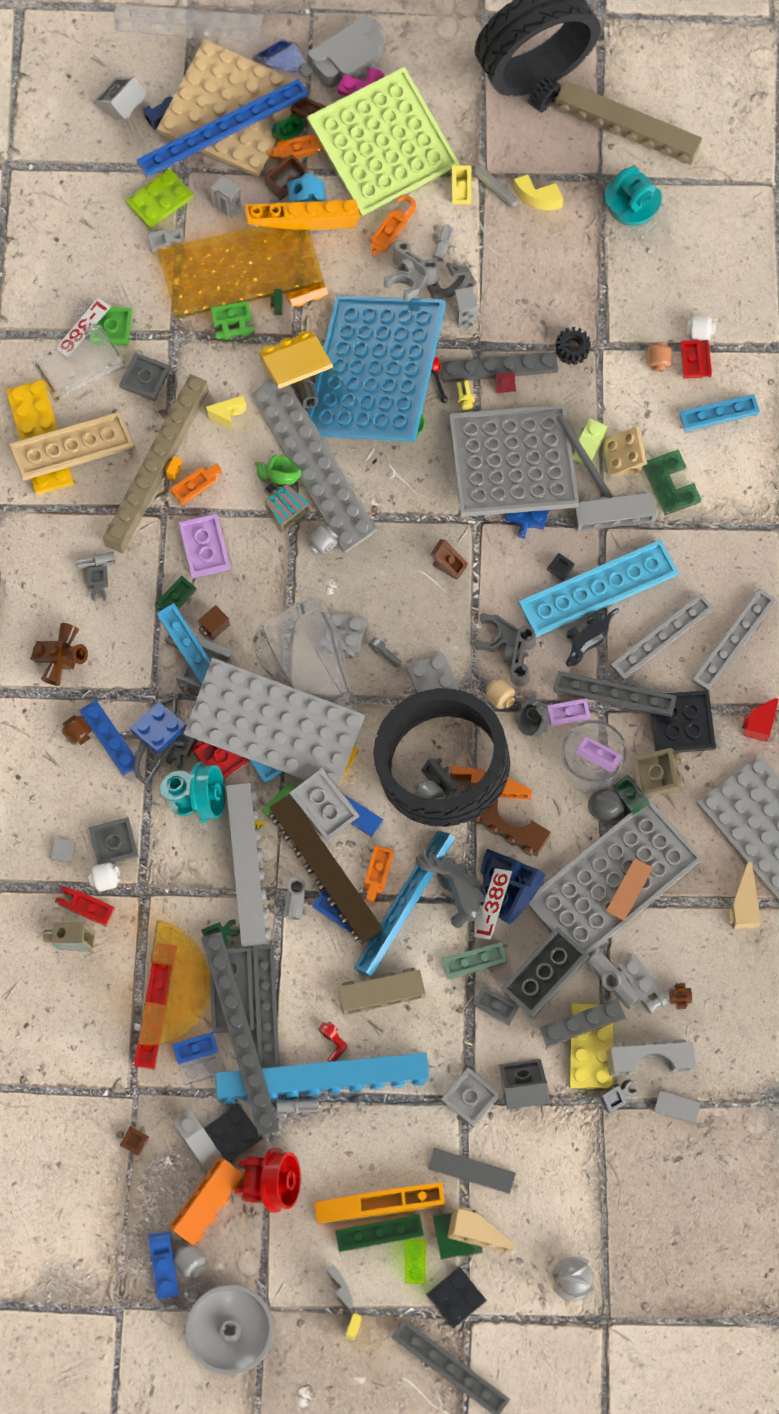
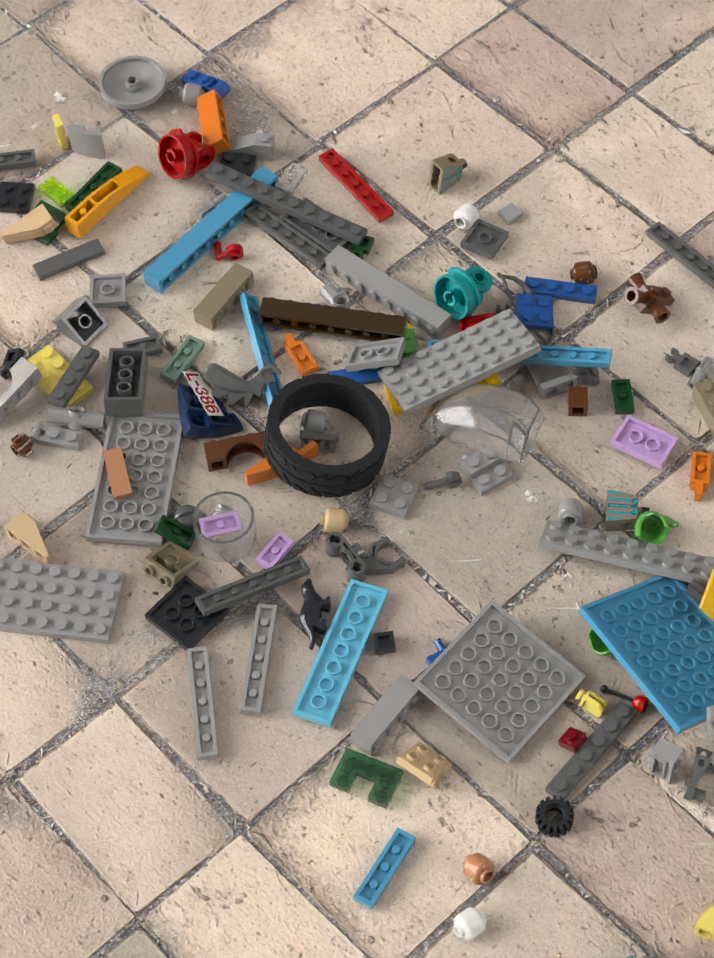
camera: 140 degrees right, 15 degrees down
(86, 906) = (460, 196): red hinge -> none
(134, 1141) = (289, 119): reddish brown plate -> none
(186, 990) = (347, 203): clear yellow plate -> none
(195, 1048) = (306, 184): blue plate -> none
(448, 559) = (469, 574): reddish brown slope -> none
(532, 717) = (294, 524): dark grey hair -> none
(584, 456) = (454, 731): dark grey piece -> none
(591, 439) = (460, 752): yellowish green slope -> none
(695, 359) = (448, 895): red plate -> none
(760, 721) = (128, 661): red slope -> none

